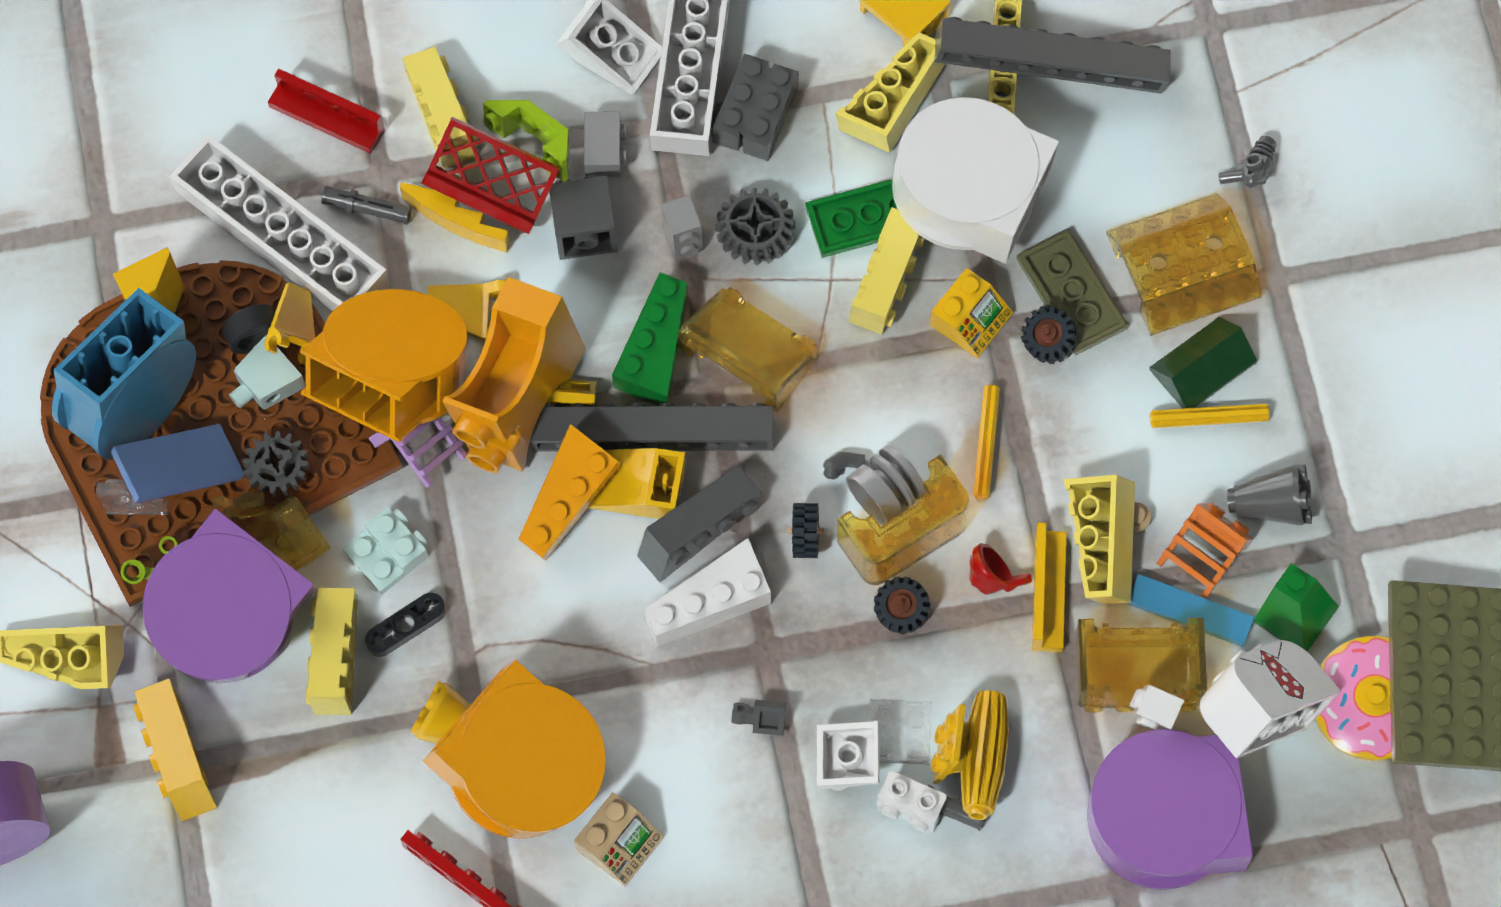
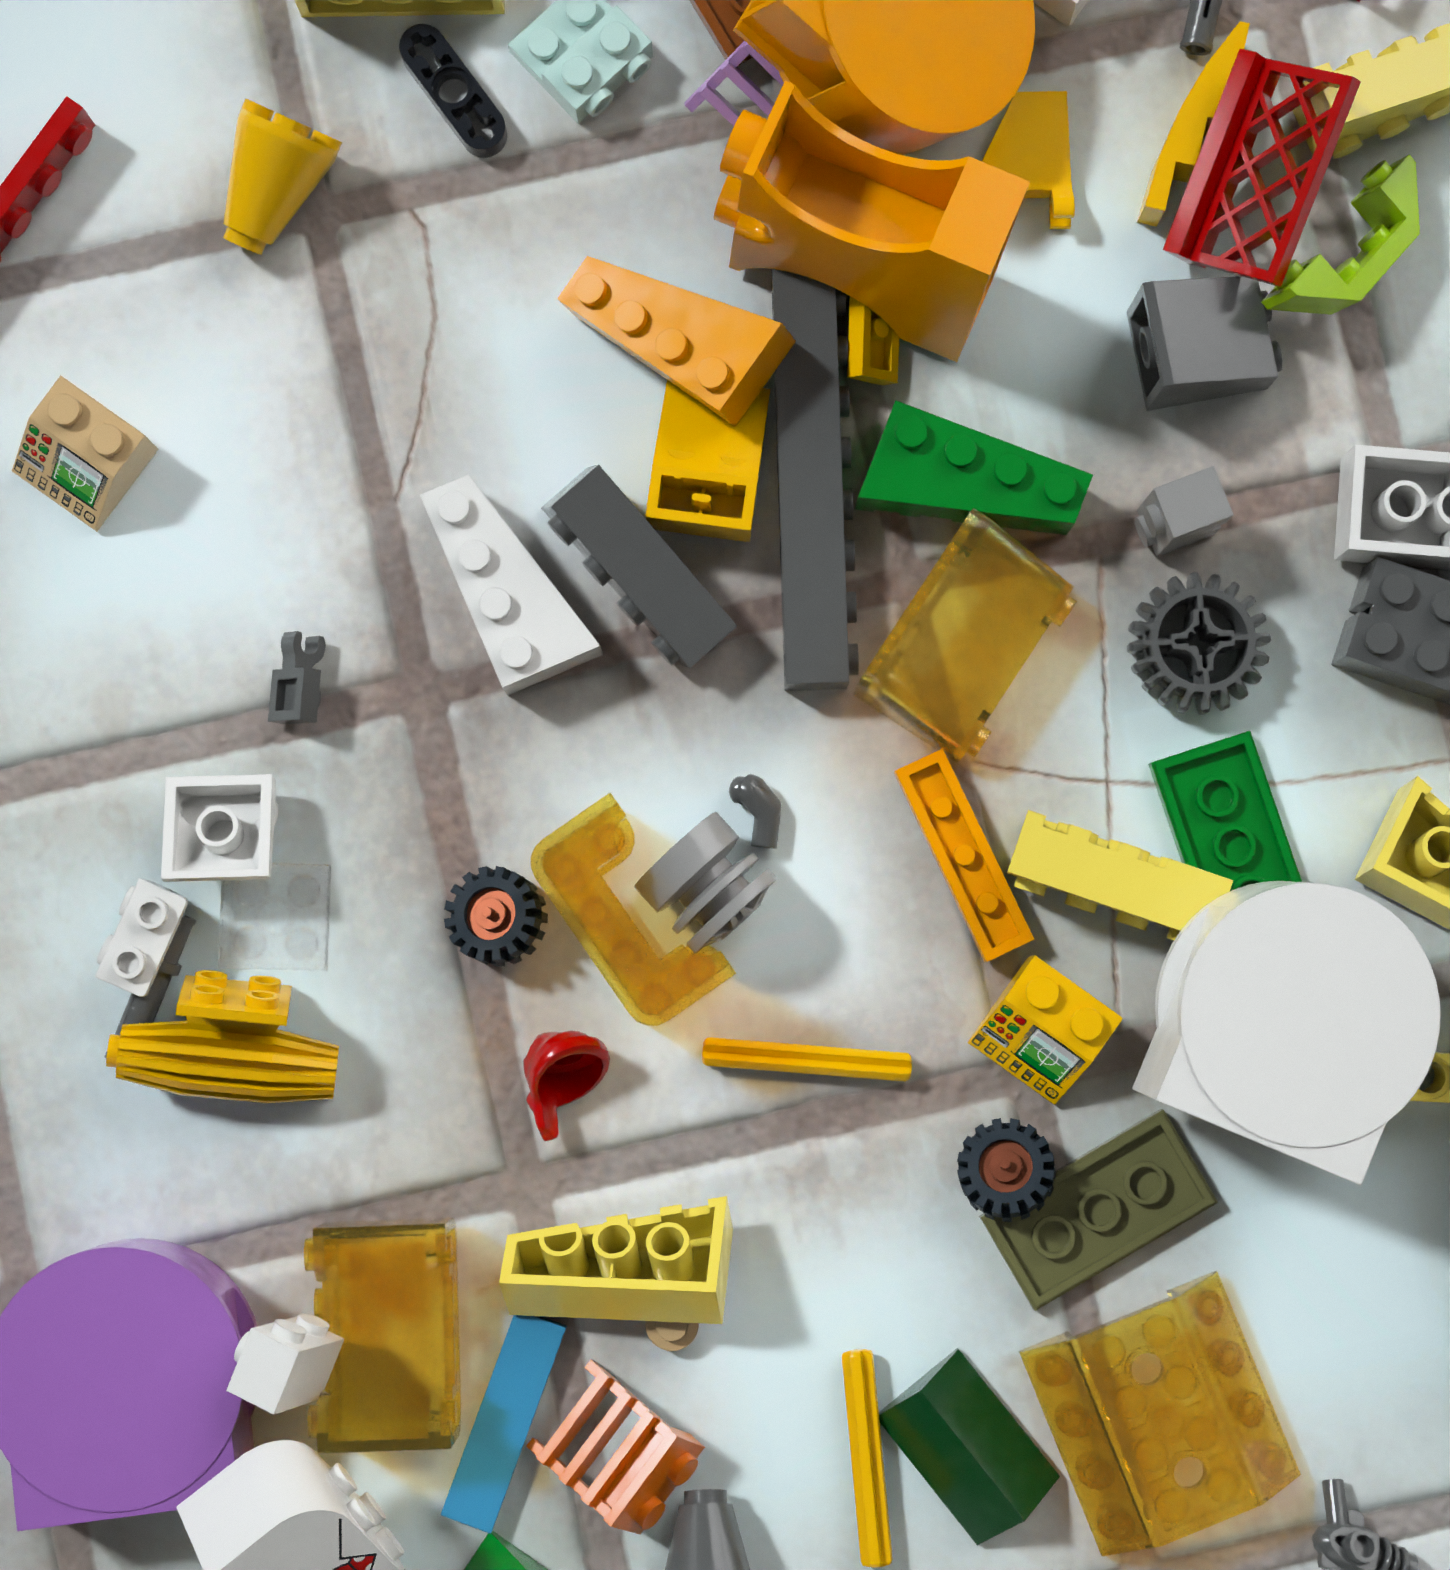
camera: 85 degrees right, 15 degrees up
(521, 756) = (186, 273): light orange brick -> none
(603, 143) = (1345, 372): light grey brick -> none
(805, 530) = (622, 745): black wheel -> none
(872, 353) = (963, 855): none -> light orange plate
(1048, 590) = (534, 1171): yellow fence -> none

